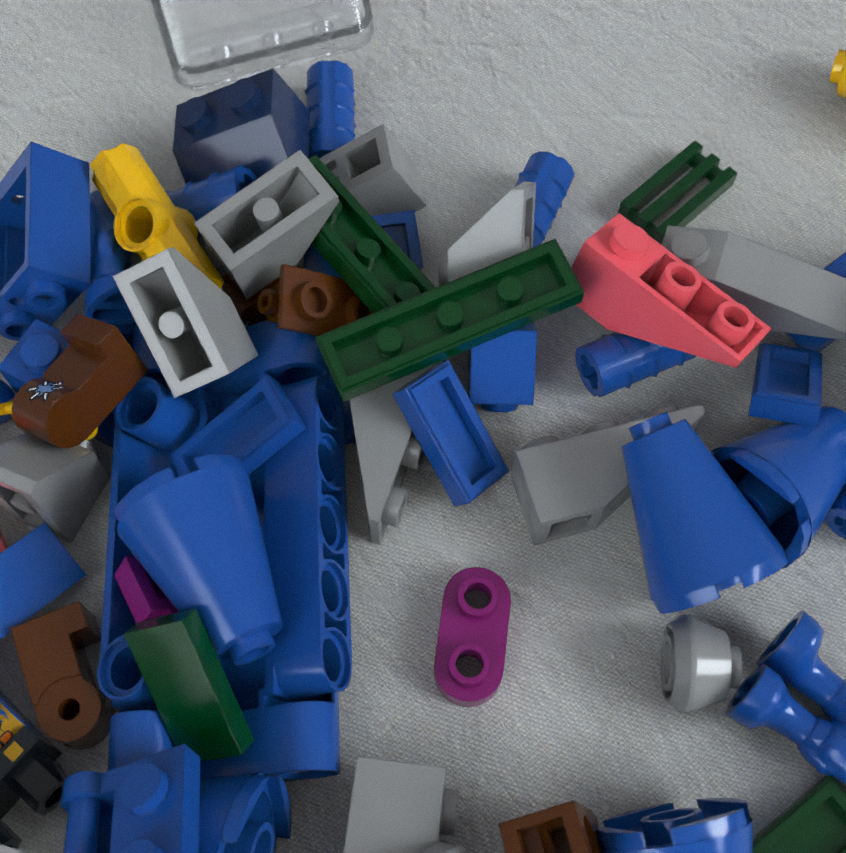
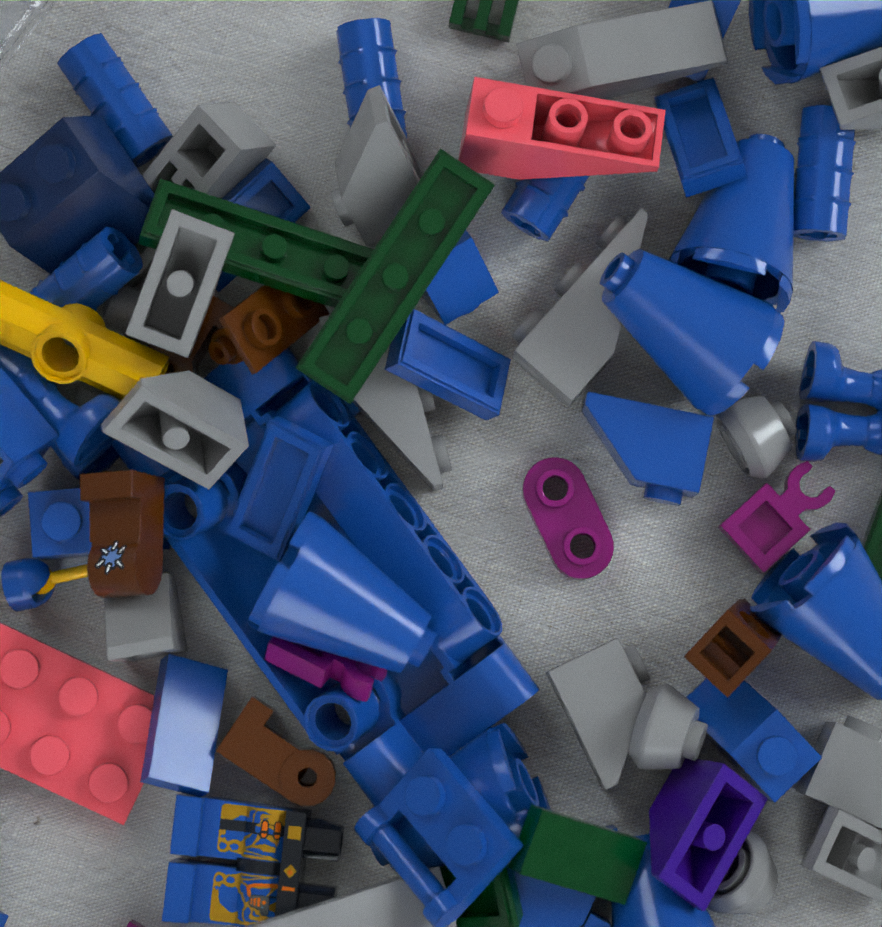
camera: 35 degrees left, 20 degrees up
(189, 685) = (395, 705): dark green tile -> none
(592, 613) = (652, 444): none -> blue slope
(663, 762) = (771, 522): none -> magenta plate

